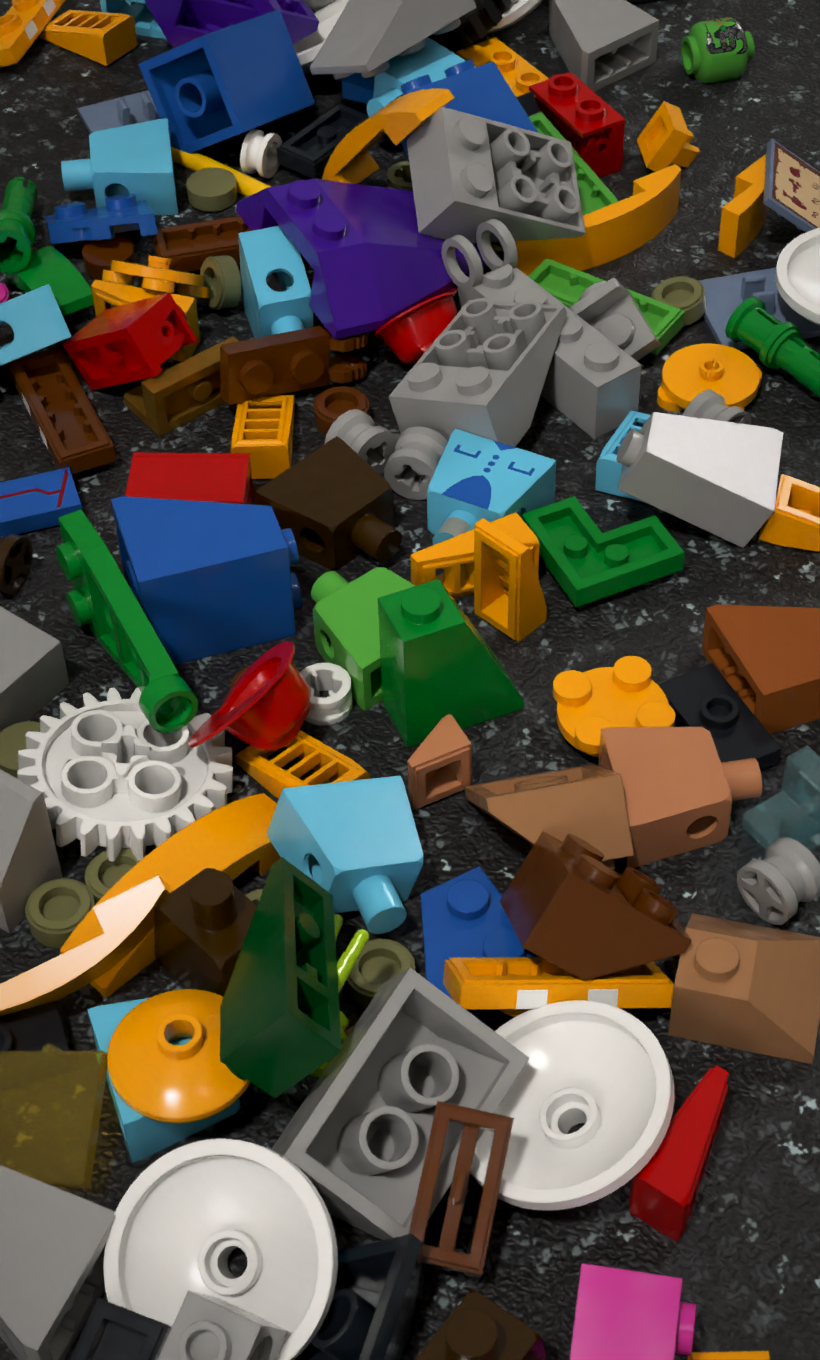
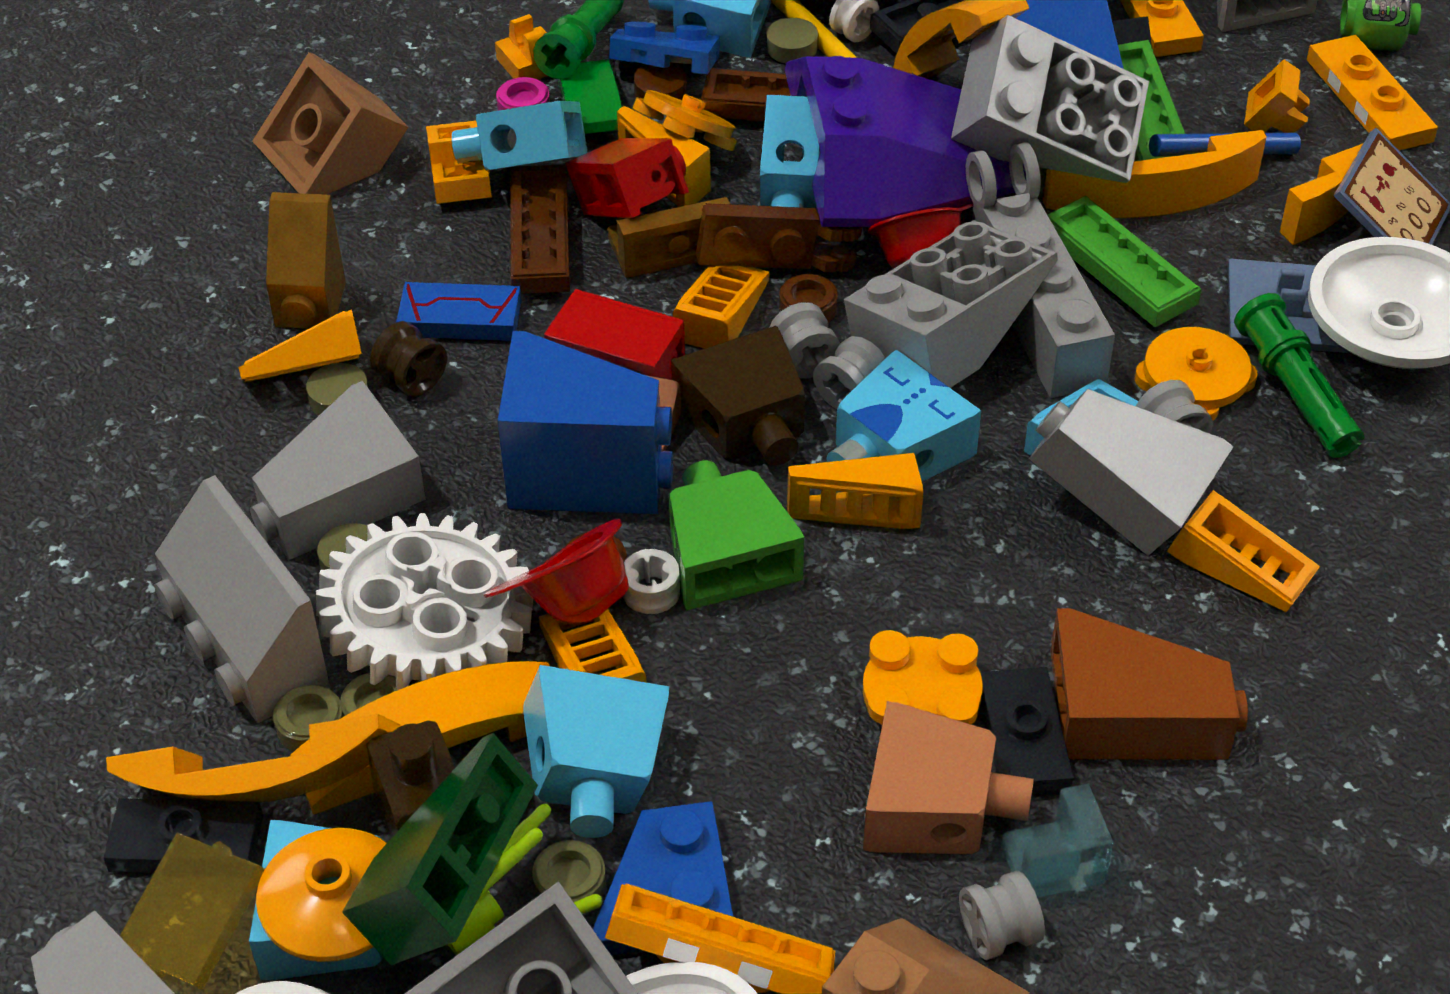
camera: 20 degrees right, 0 degrees up
(120, 625) = (482, 541): green plate -> none
(223, 280) = (749, 137): olive tile -> none
(437, 664) = (764, 587): green slope -> none
(440, 764) = (719, 687): nougat slope -> none
(506, 583) = (870, 525): light orange slope -> none
(562, 802) = (808, 775): medium nougat slope -> none
(584, 120) = (1189, 62): red hinge -> none
(588, 914) = (781, 884): reddish brown slope -> none
(598, 563) = (985, 530): green plate -> none
(614, 192) = (1182, 144): none -> blue bar
(617, 316) = (1119, 281): light grey bracket -> none
(683, 294) = (1211, 272): olive tile -> none
(736, 114) = (1371, 92): none -> light orange plate

